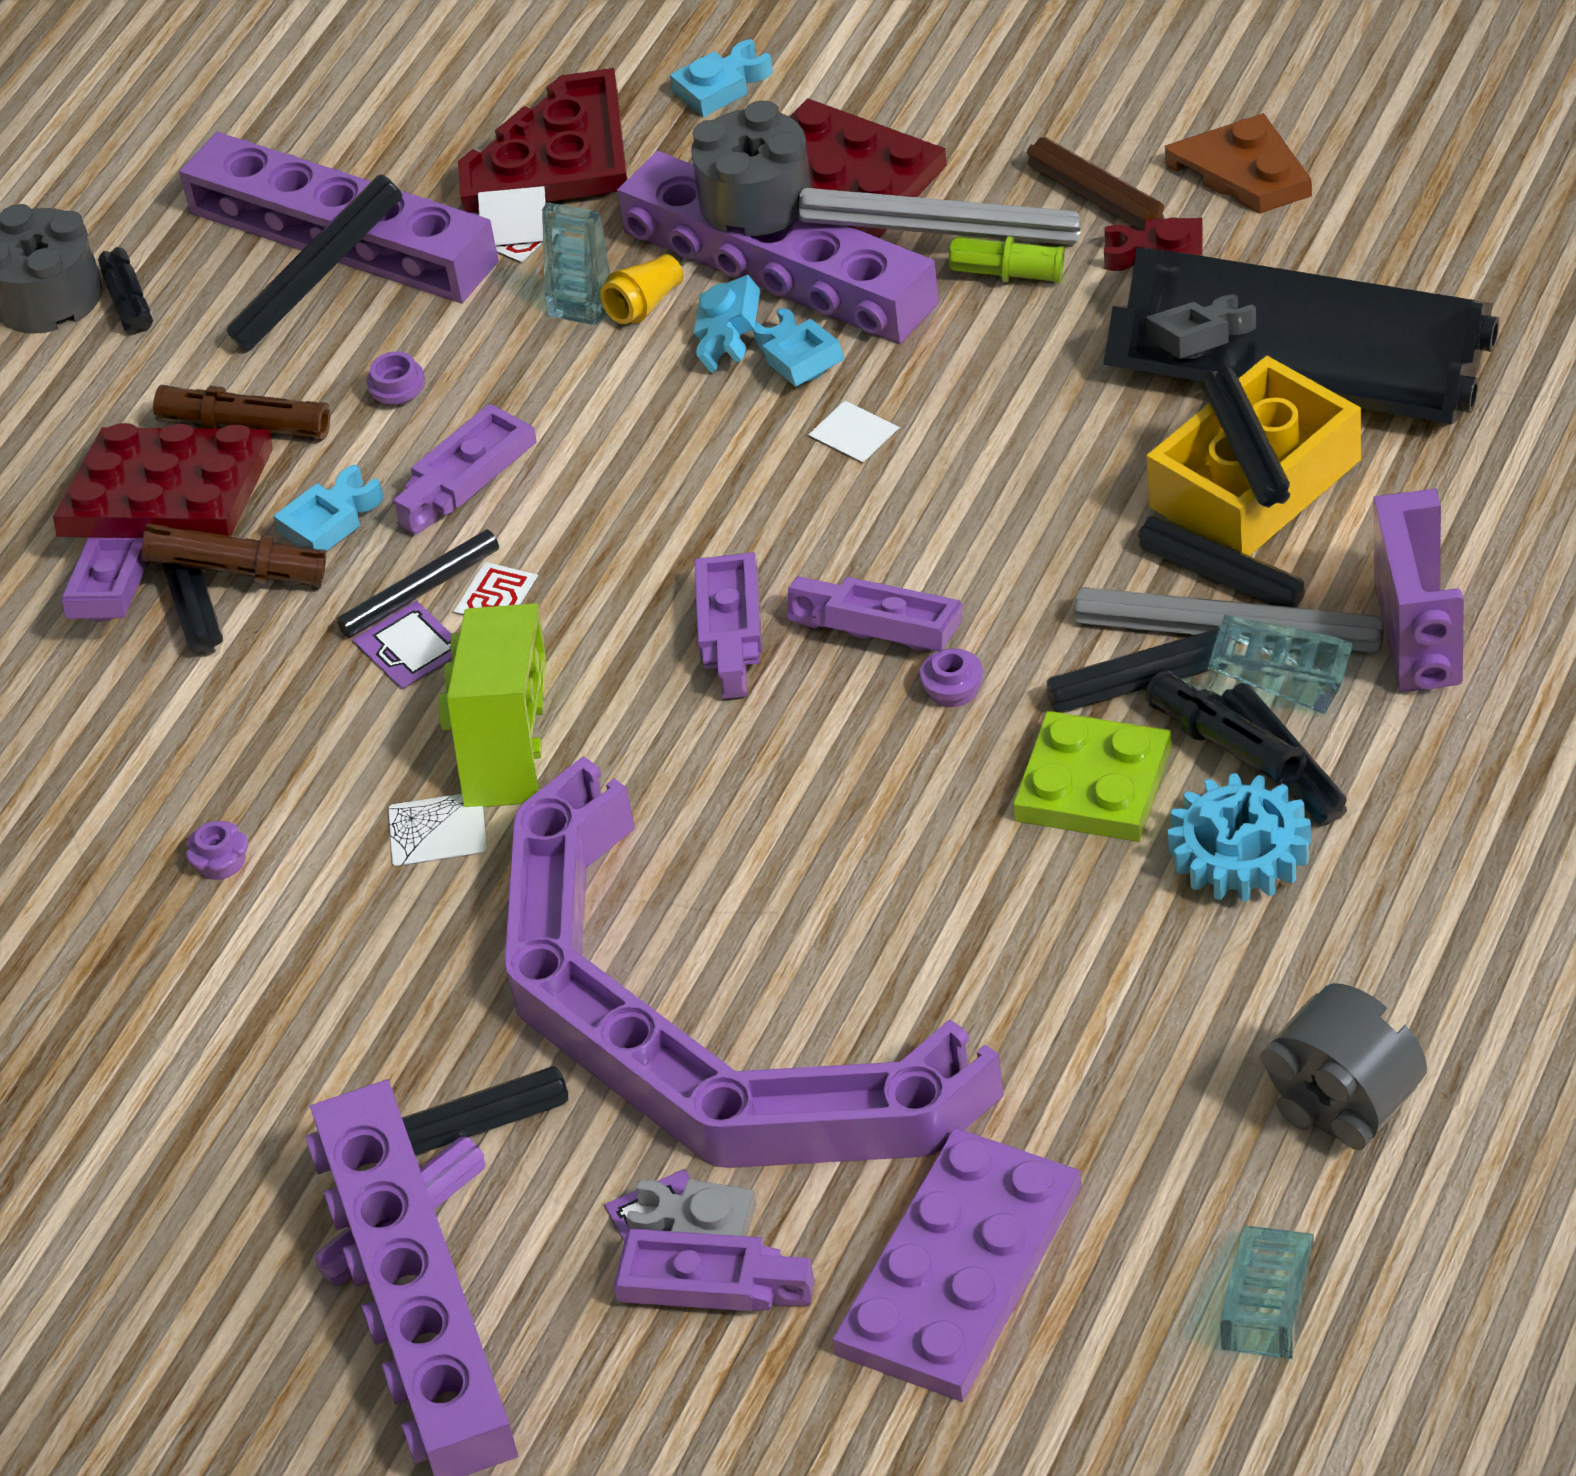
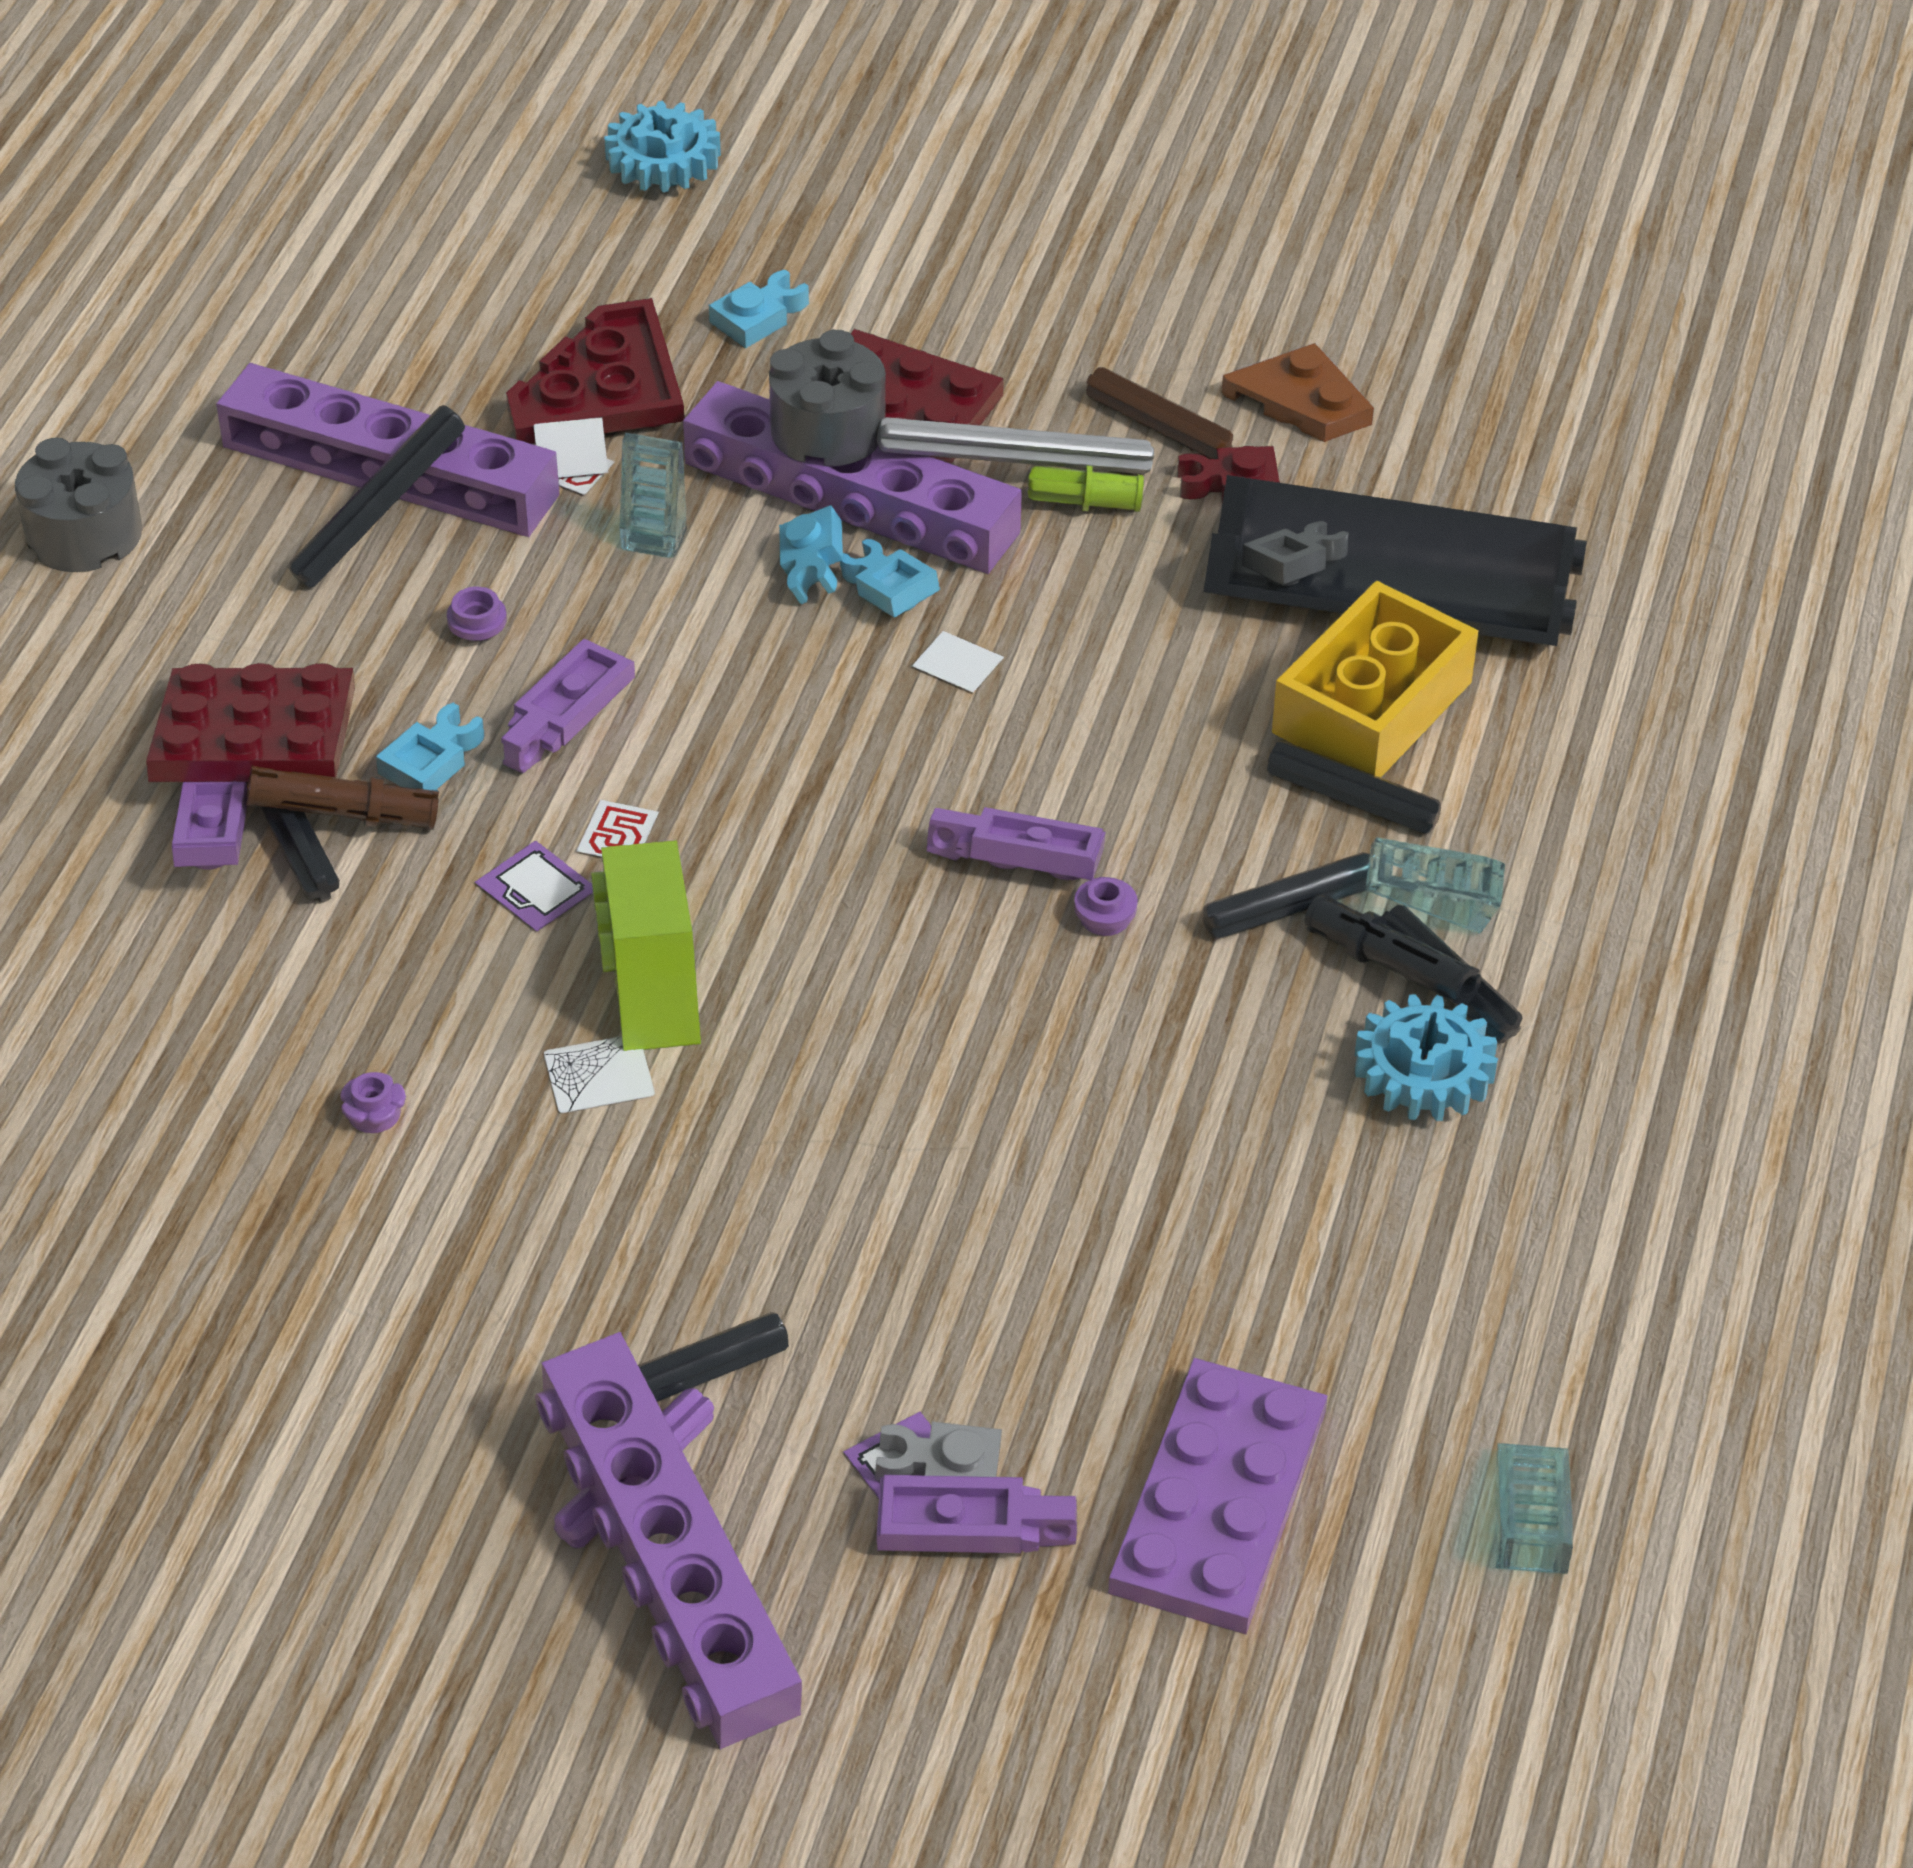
camera: 15 degrees left, 0 degrees up
(125, 290) = (170, 526): black axle -> none
(217, 408) = (299, 648): reddish brown pin -> none
(417, 583) = (535, 823): black bar -> none
(637, 290) = (714, 522): yellow cone -> none
(665, 1073) = (886, 1311): medium lavender piece -> none
(729, 618) = (869, 851): medium lavender hinge -> none
(1093, 776) = (1264, 1001): lime plate -> none
(1200, 615) = (1346, 839): light grey axle -> none
(1247, 437) = (1376, 661): black axle -> none
(1343, 1065) = (1578, 1280): dark grey brick -> none
(1417, 616) = (1564, 844): medium lavender panel -> none

